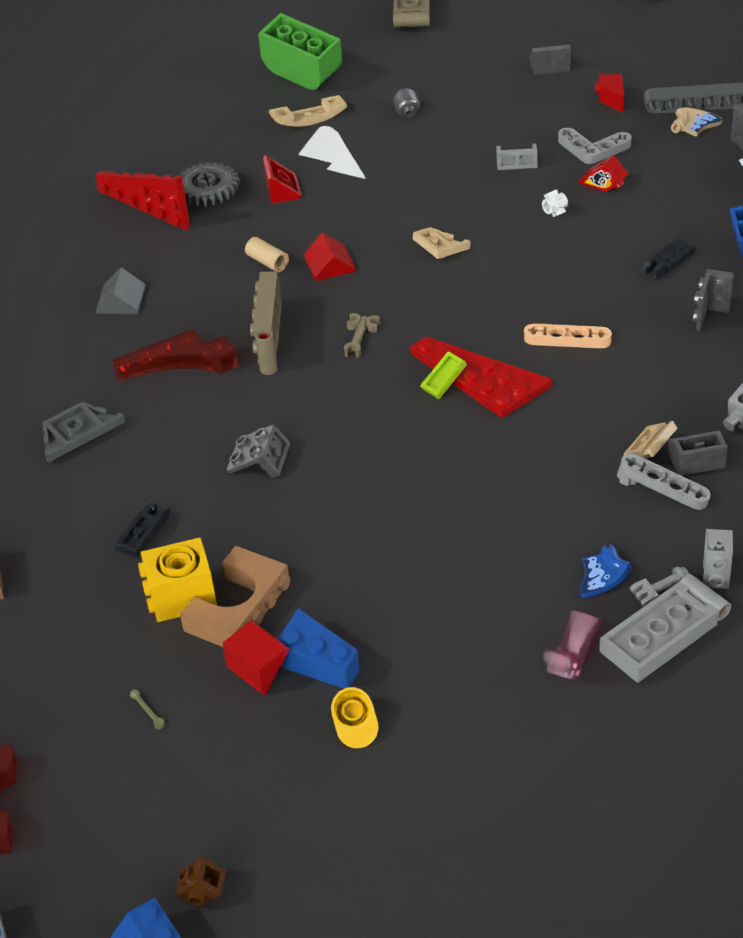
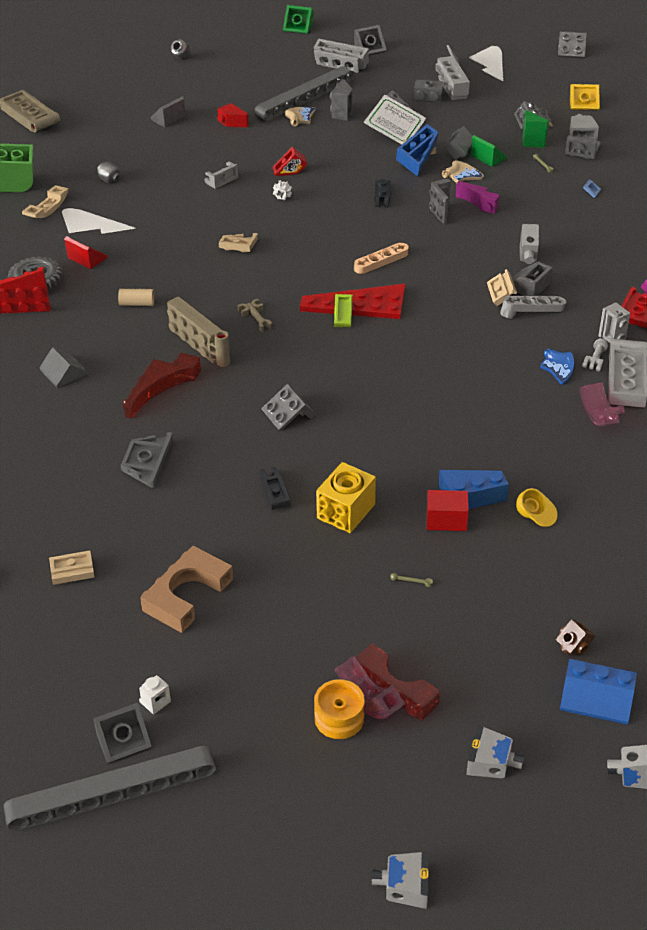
camera: 45 degrees left, 0 degrees up
(256, 572) = (398, 508): medium nougat arch -> none
(328, 258) = (178, 283): red slope -> none
(593, 152) = (260, 155): light grey beam -> none

